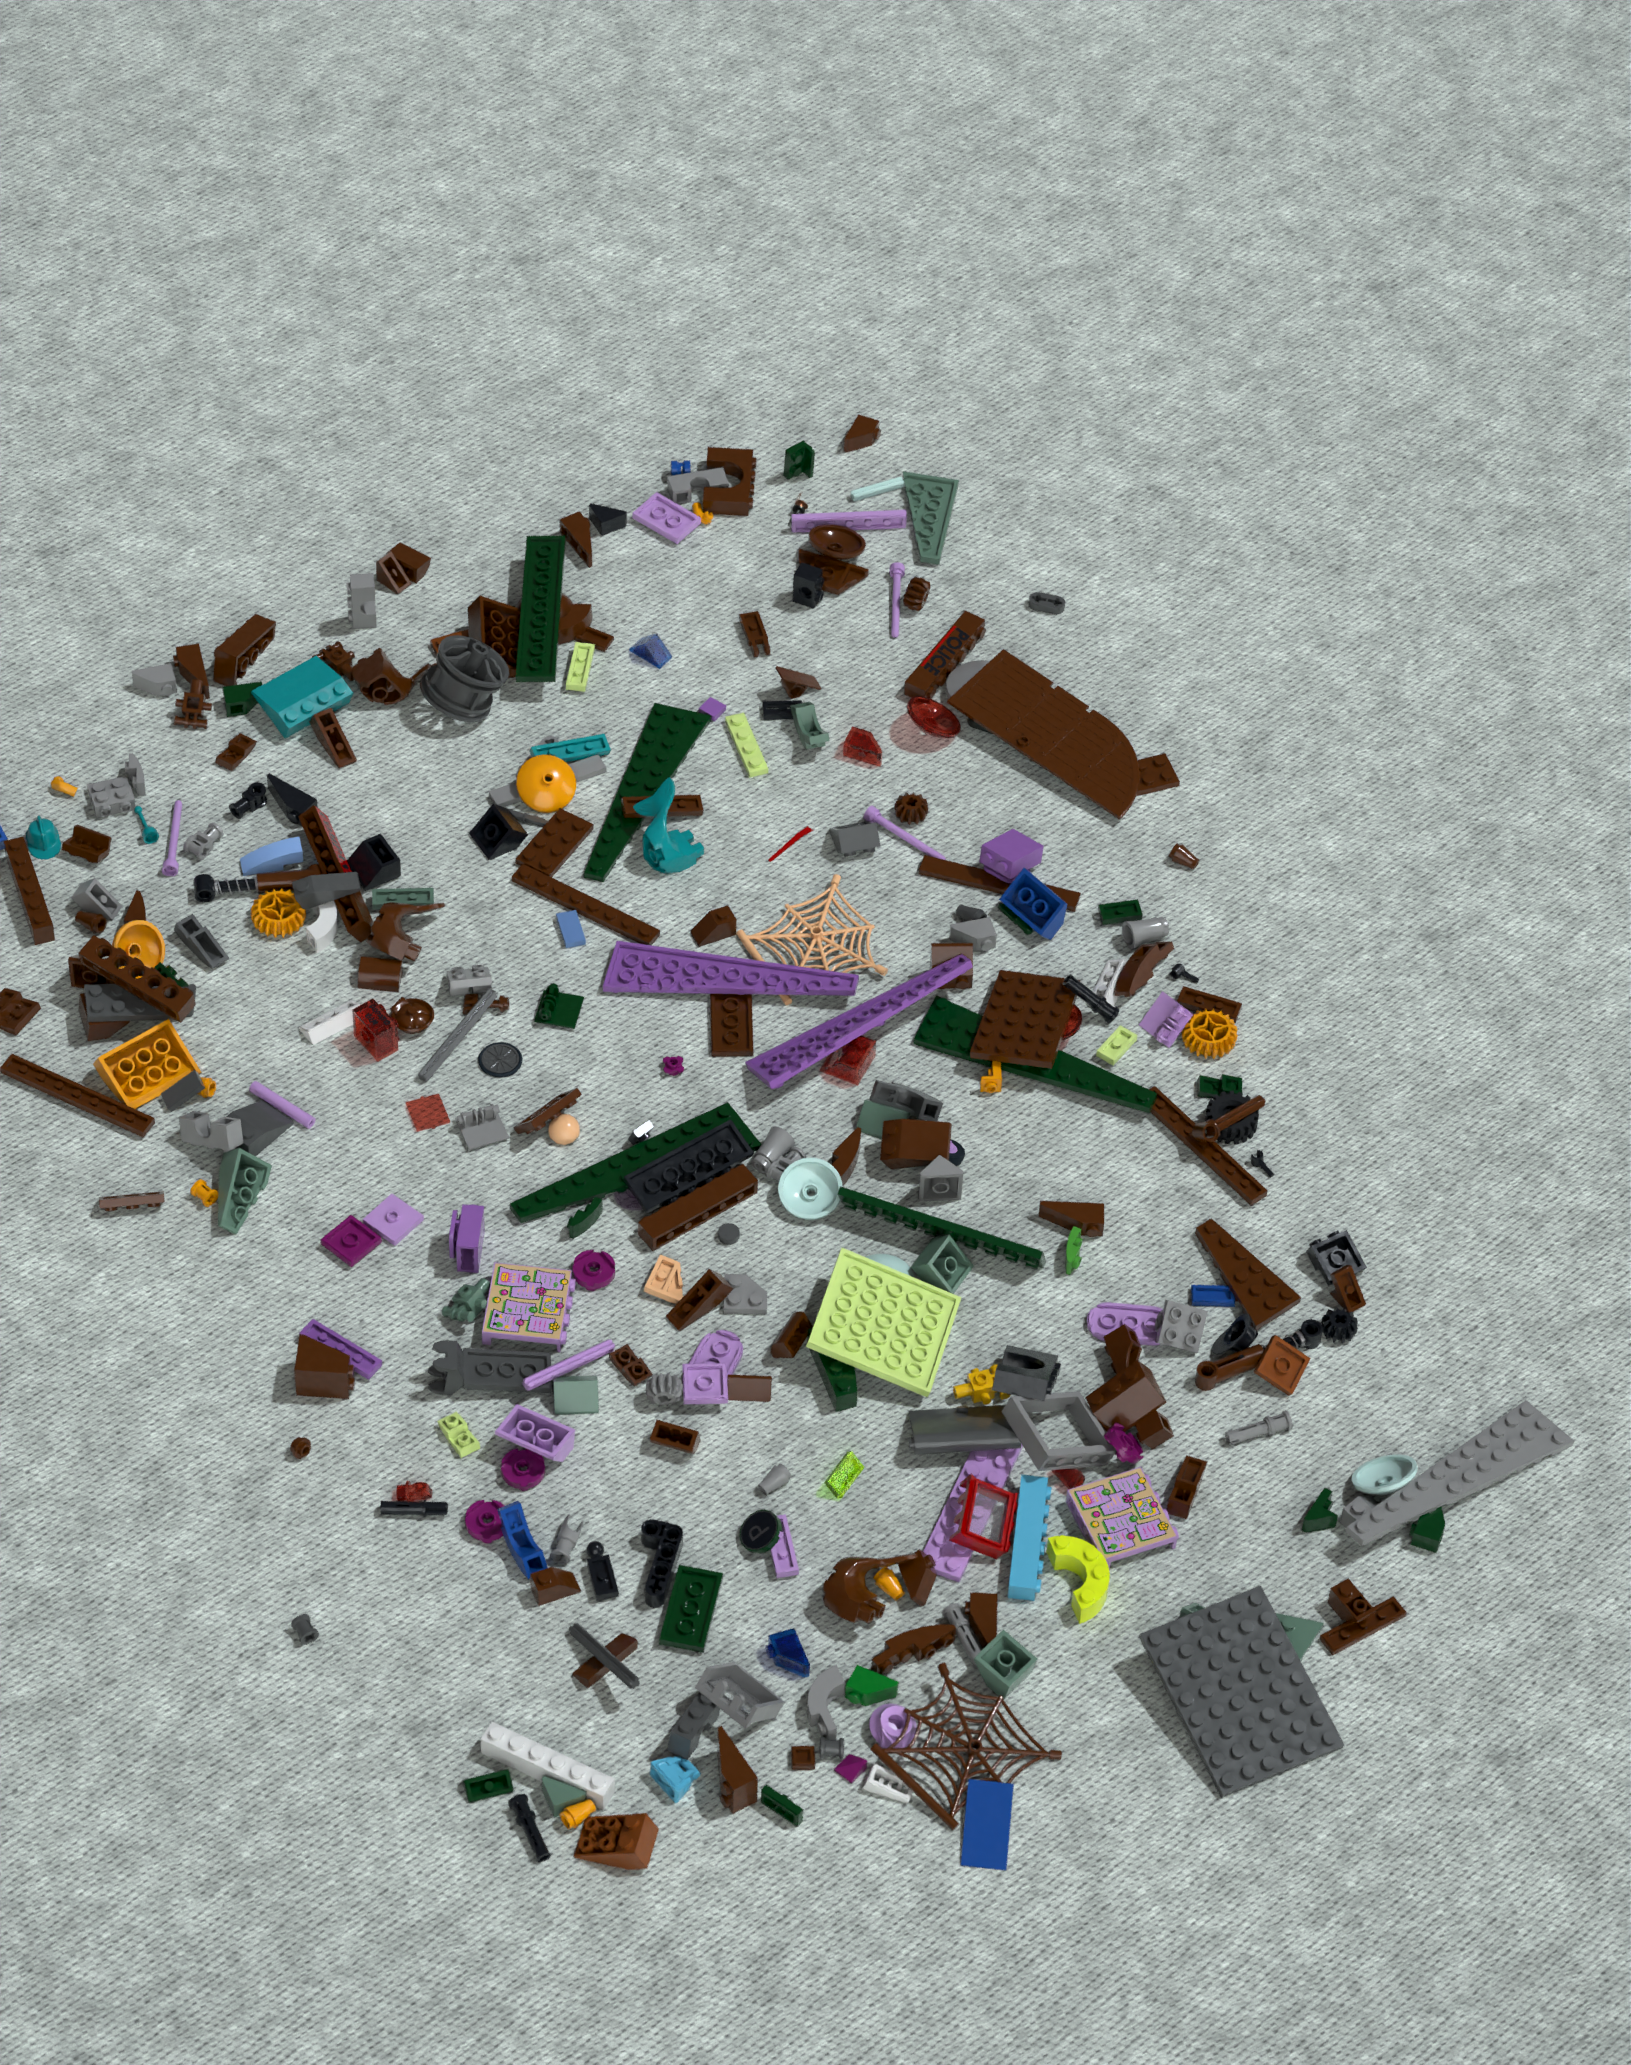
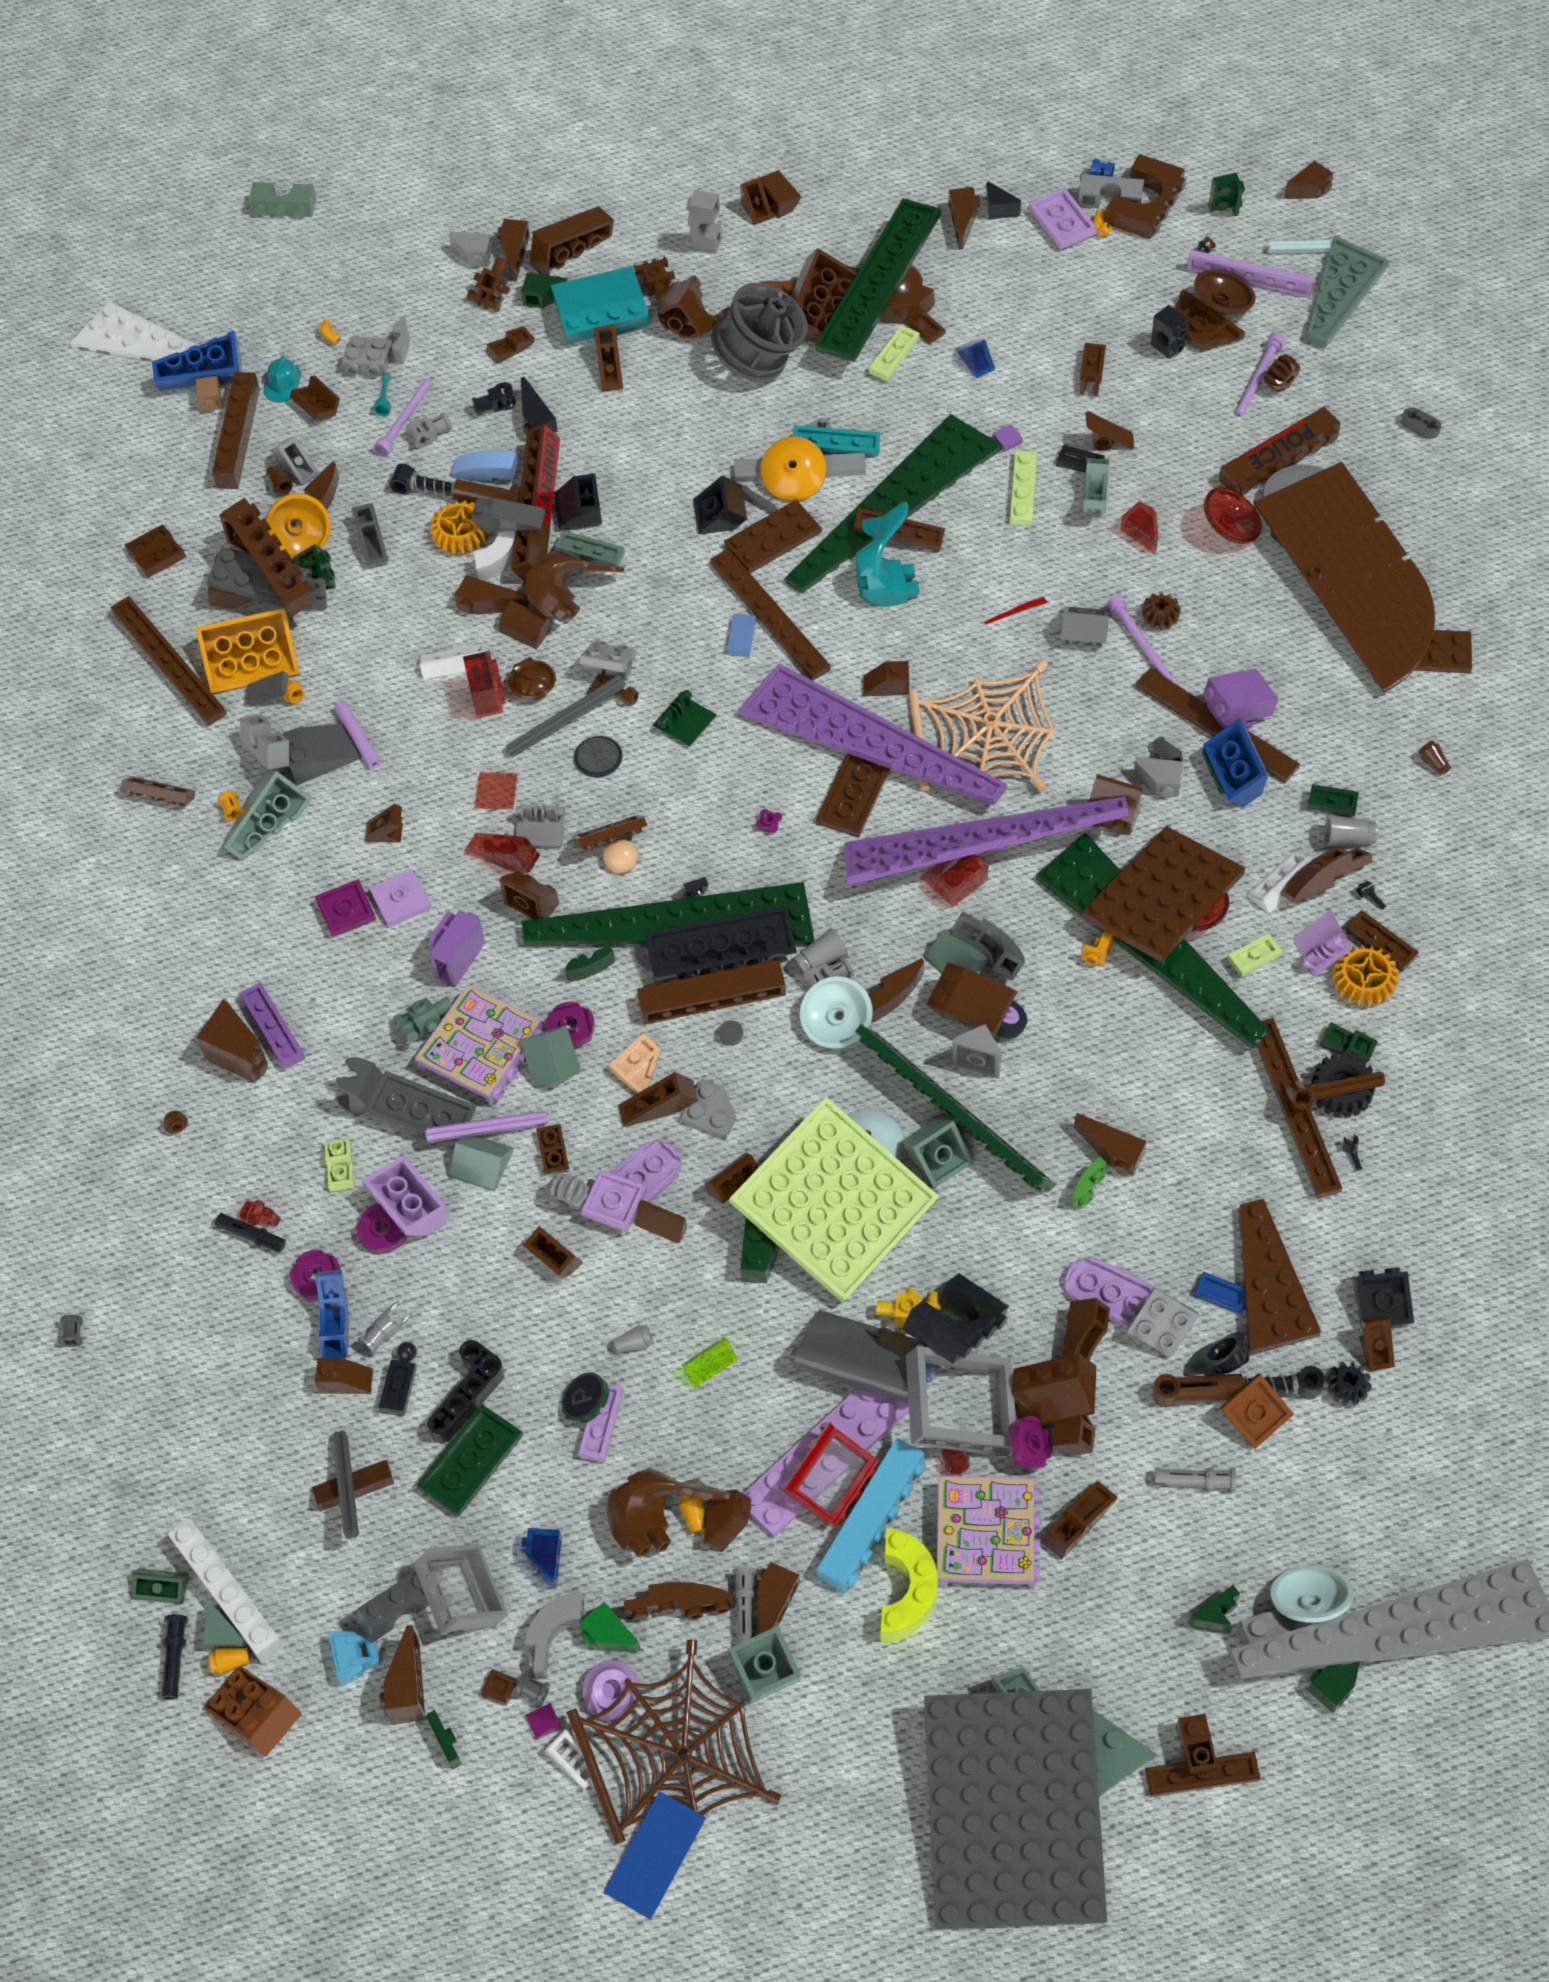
camera: 30 degrees right, 10 degrees up
(335, 962) = (485, 597): none -> reddish brown slope
(350, 1166) = (385, 826): none -> reddish brown slope
(466, 1154) = (506, 851): none -> clear red slope
(505, 1182) = (528, 895): none -> reddish brown slope
(592, 1296) = (550, 1056): none -> sand green slope
(1097, 1003) = (1253, 900): black pin -> none

